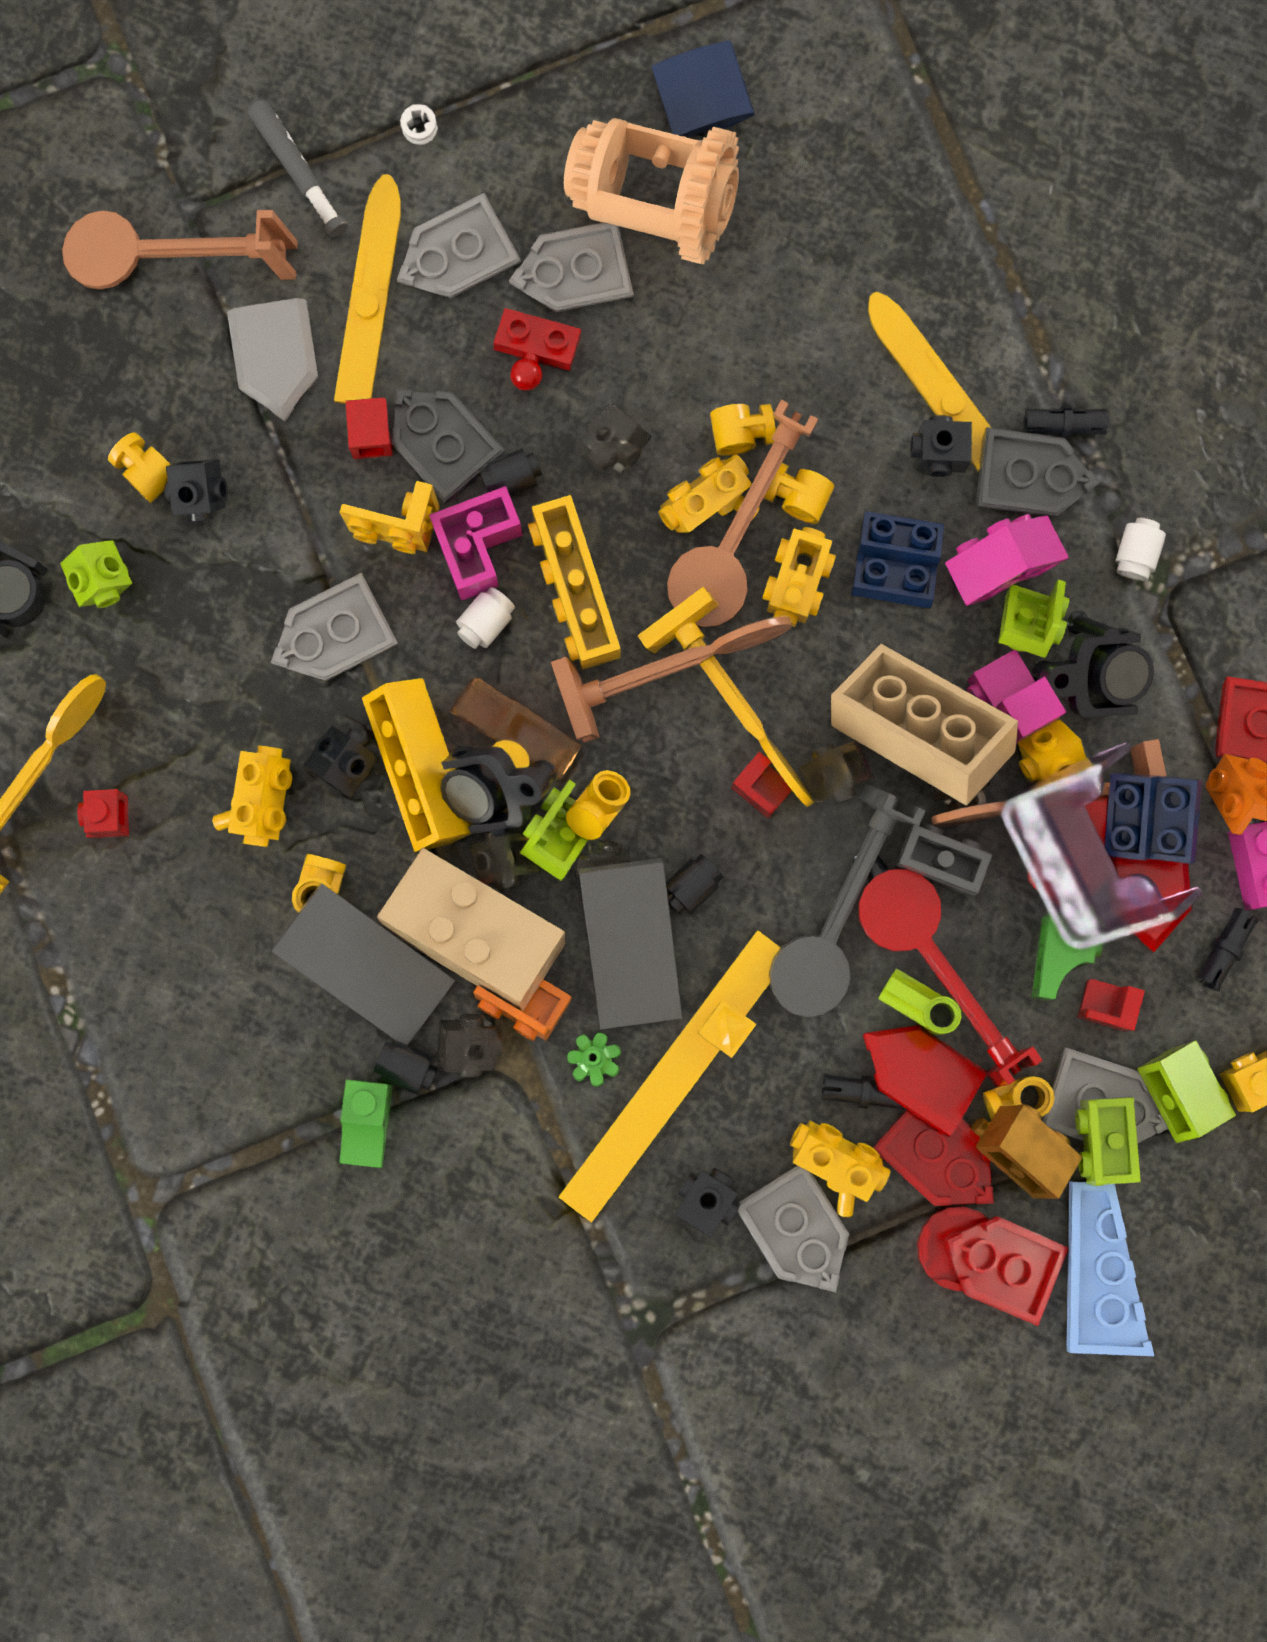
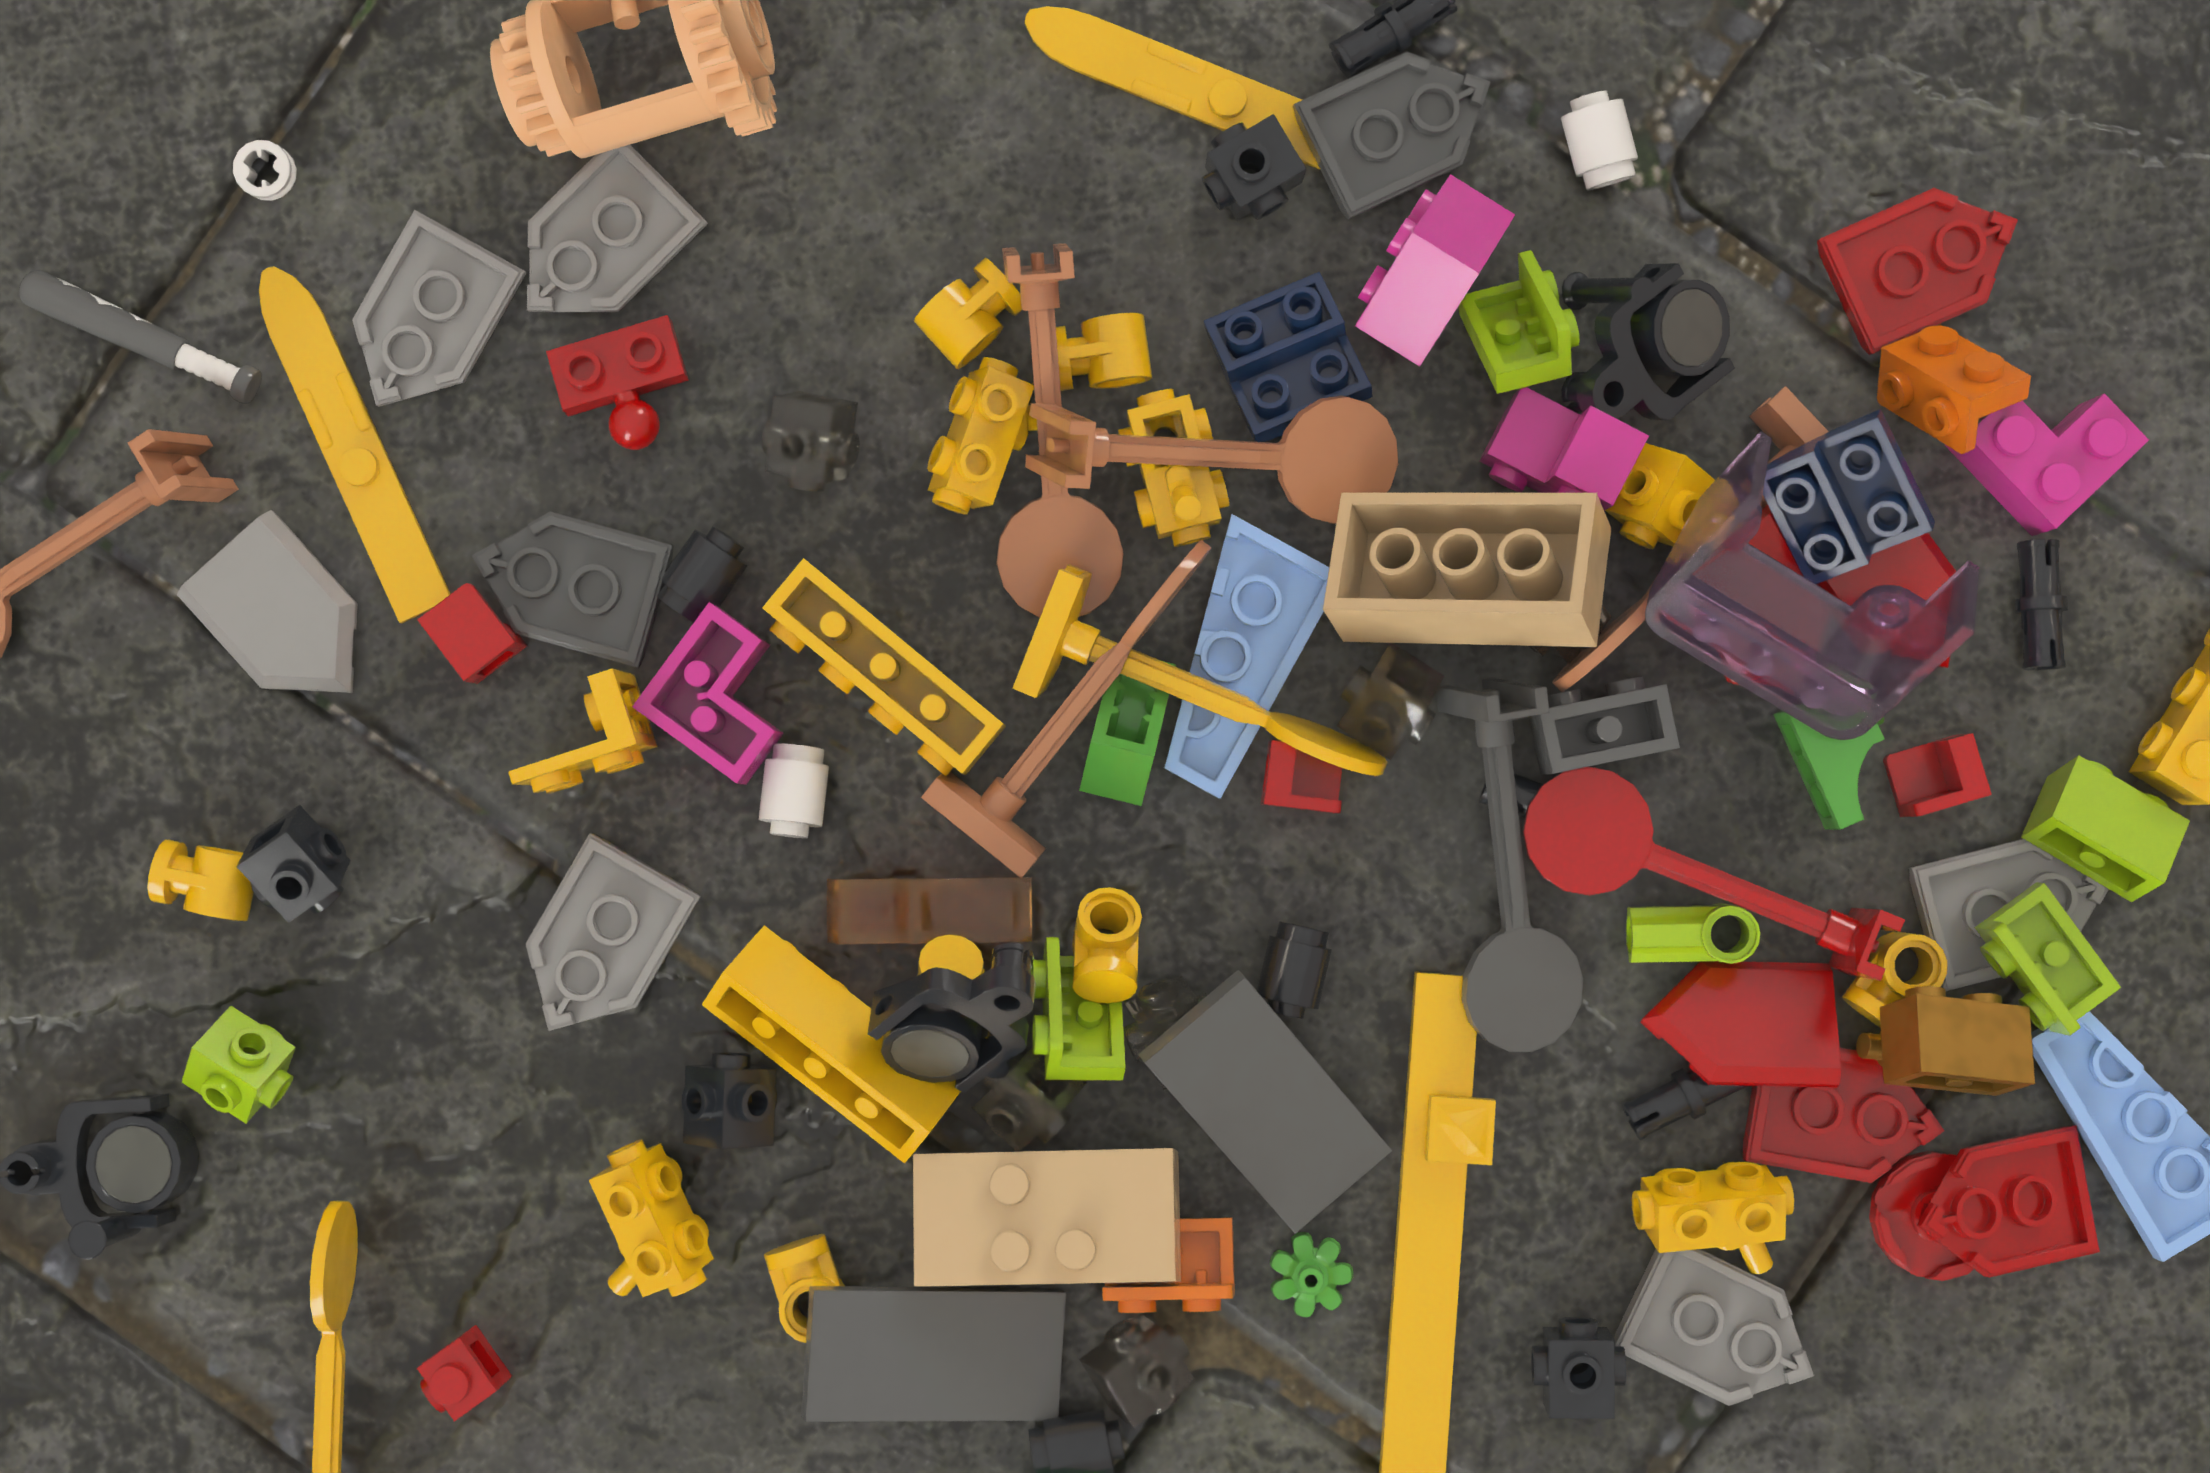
camera: 30 degrees left, 5 degrees up
(679, 702) = (1124, 740): none -> bright green arch
(780, 694) = (1249, 640): none -> light blue wing
(882, 617) = (1323, 452): none -> nougat piece

